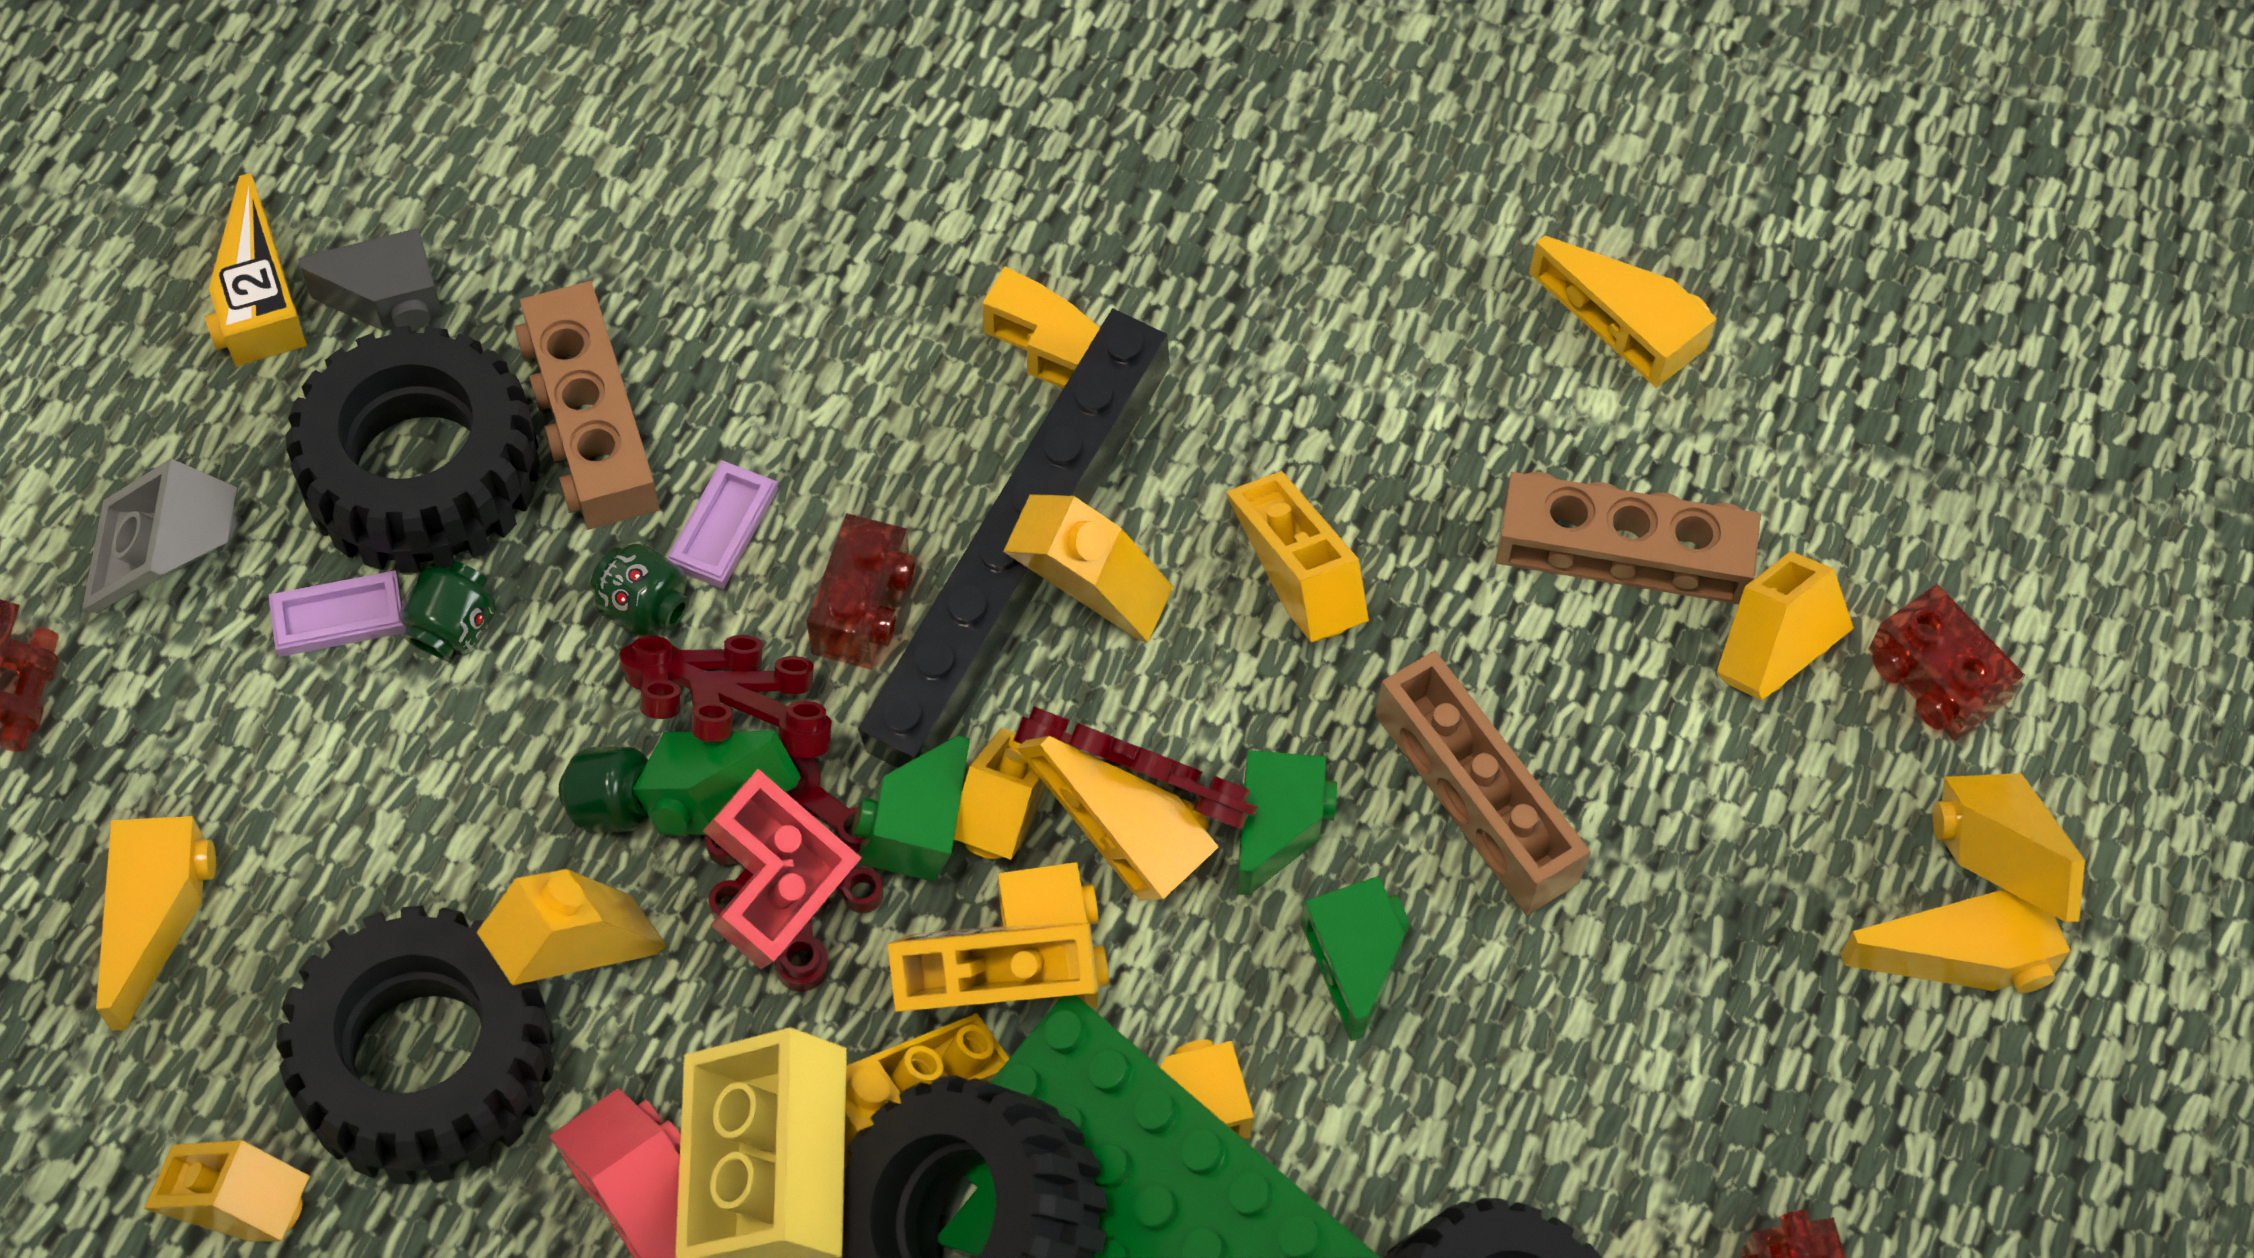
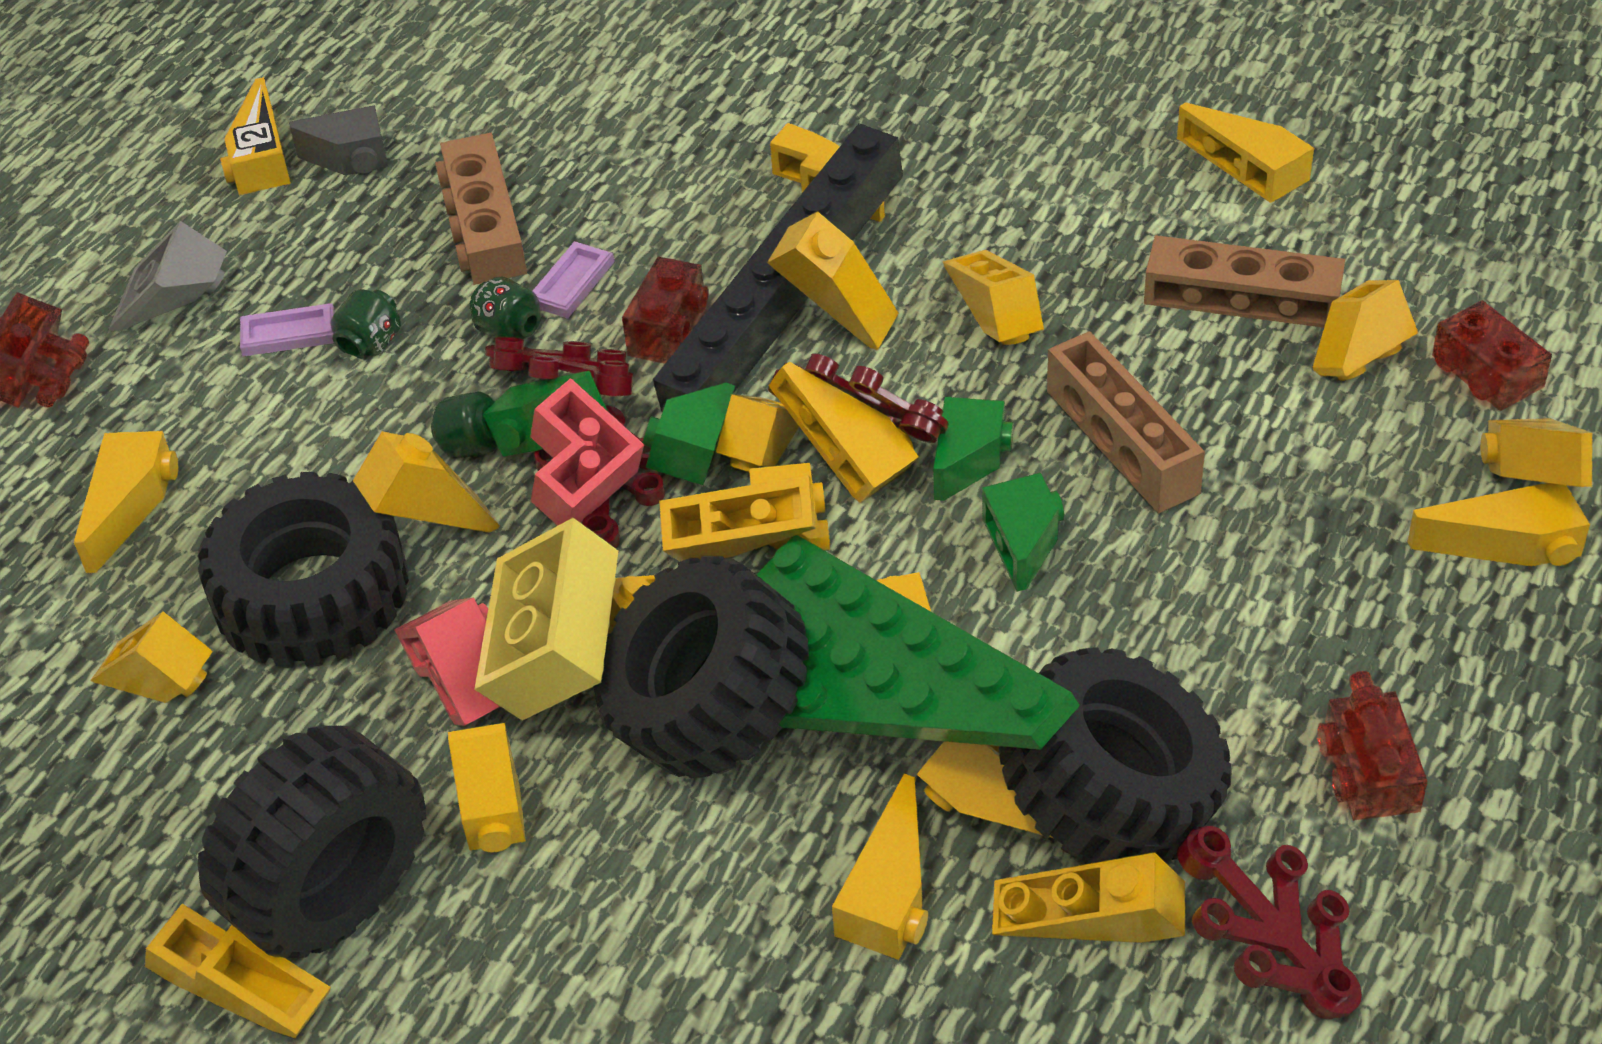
camera: 10 degrees right, 15 degrees down
(425, 514) = (345, 189): black tyre -> none

